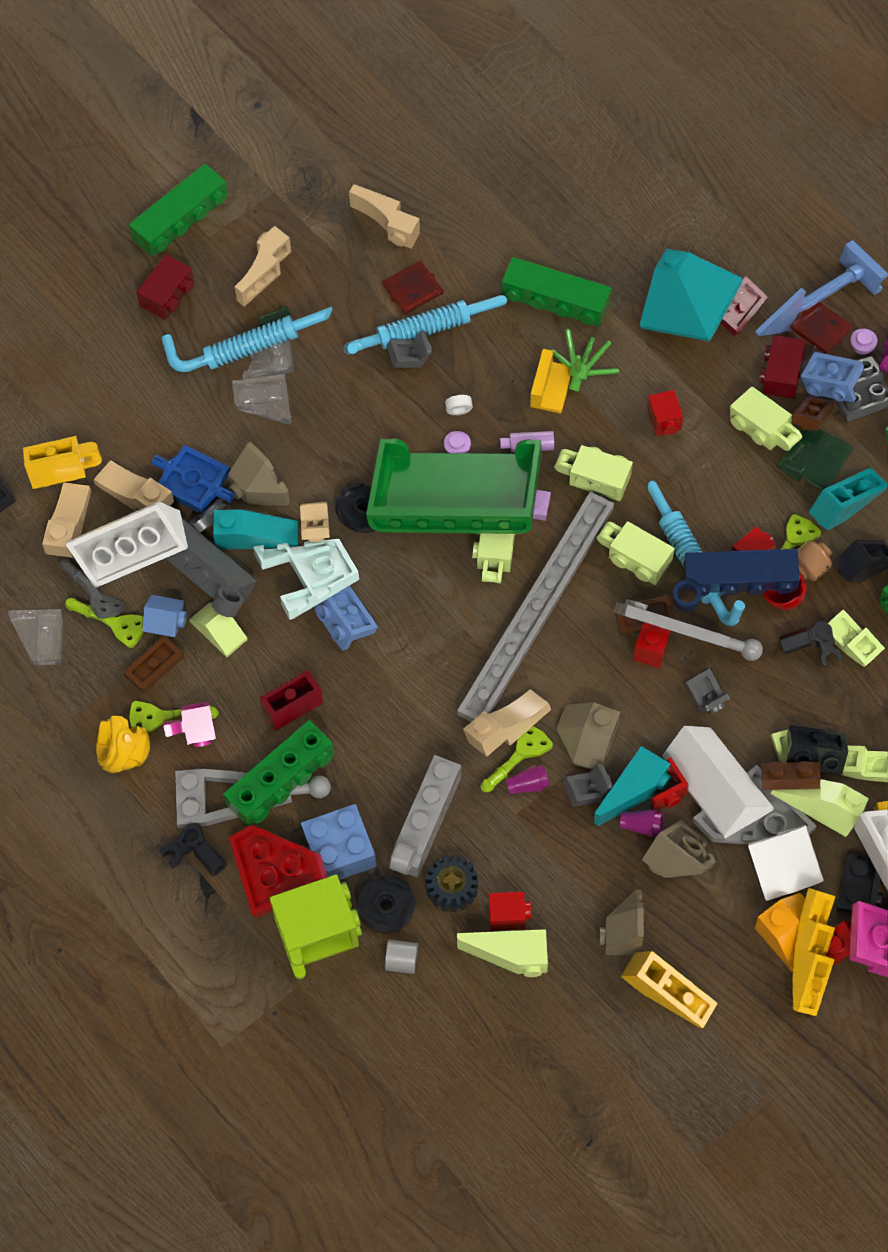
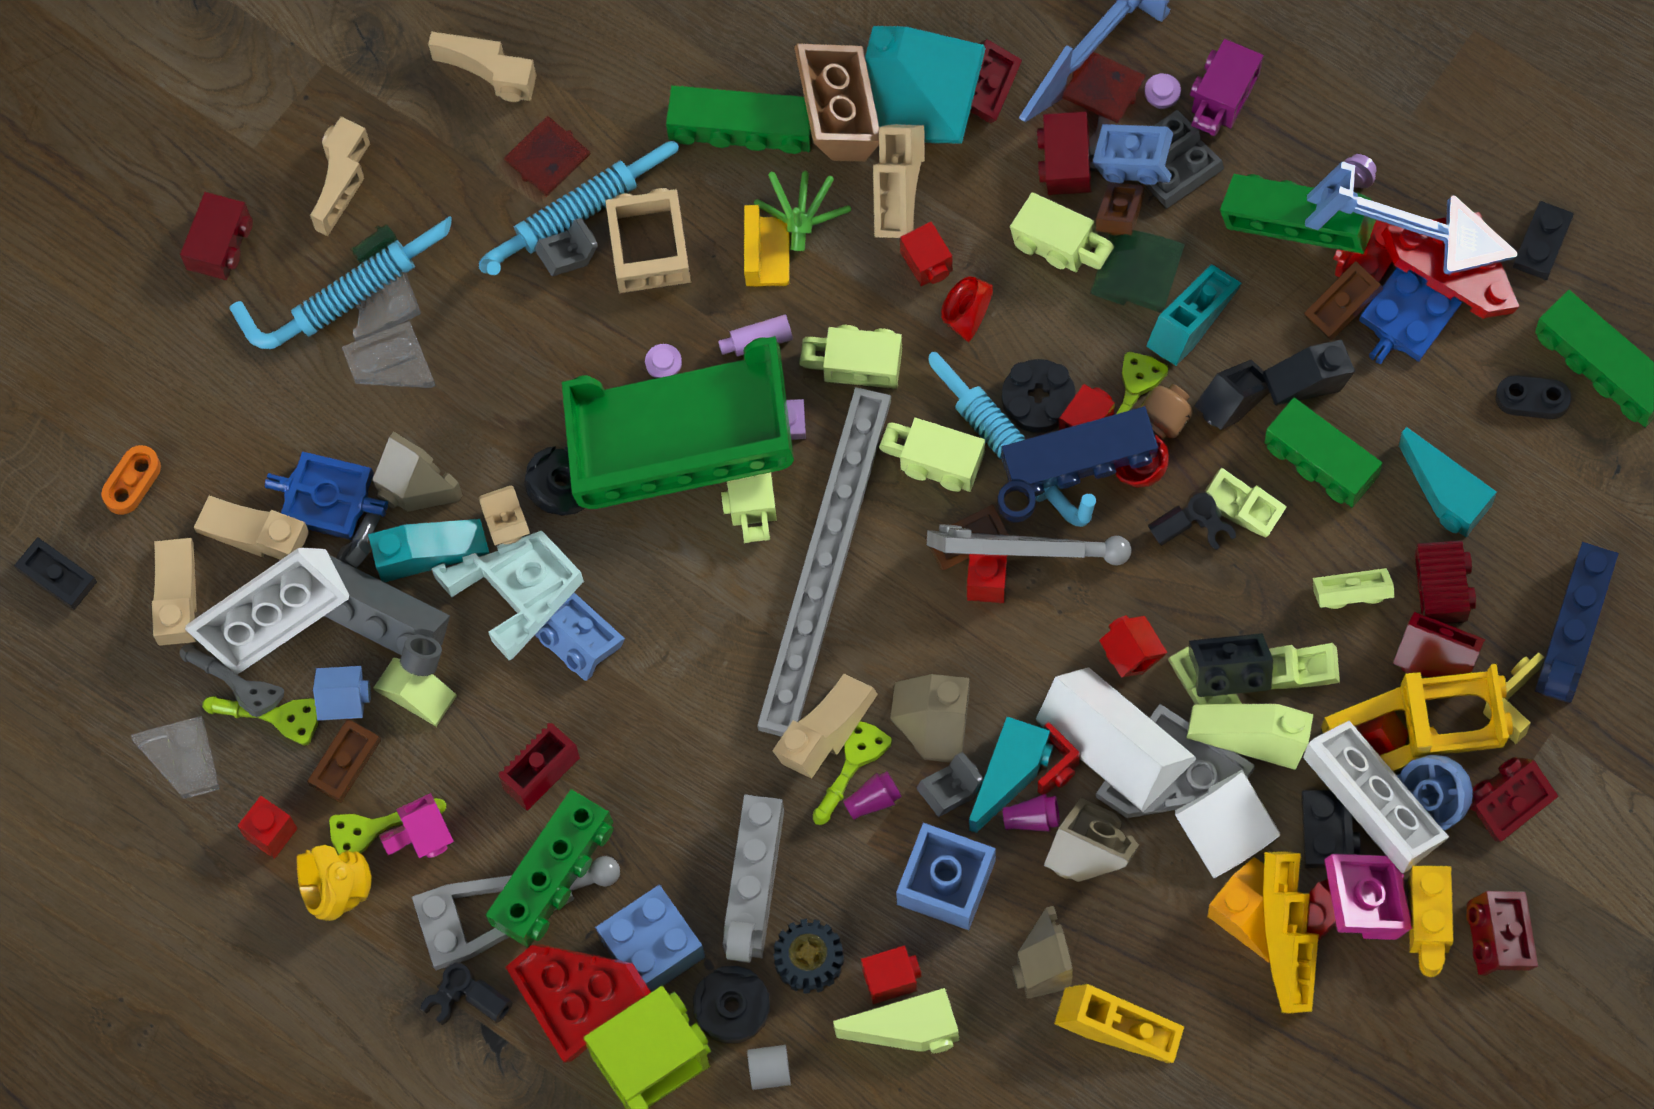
camera: 10 degrees left, 5 degrees up
(59, 428) = (128, 480): none -> orange plate
(59, 461) = (142, 514): yellow brick -> none
(85, 697) = (267, 827): none -> red brick
(178, 210) = (203, 122): green brick -> none
(458, 405) = (652, 308): white tile -> none
(468, 381) = (651, 272): none -> tan window
(567, 850) = (946, 876): none -> medium blue brick
(628, 293) = (838, 100): none -> medium nougat slope
(656, 354) = (896, 178): none -> tan slope
(685, 455) = (966, 306): none -> red piece
(706, 692) = (1071, 622): dark grey bracket -> none
(720, 514) = (1026, 378): none -> black plate
(746, 719) = (1132, 645): none -> red brick
(790, 775) = (1207, 709): reddish brown plate -> none

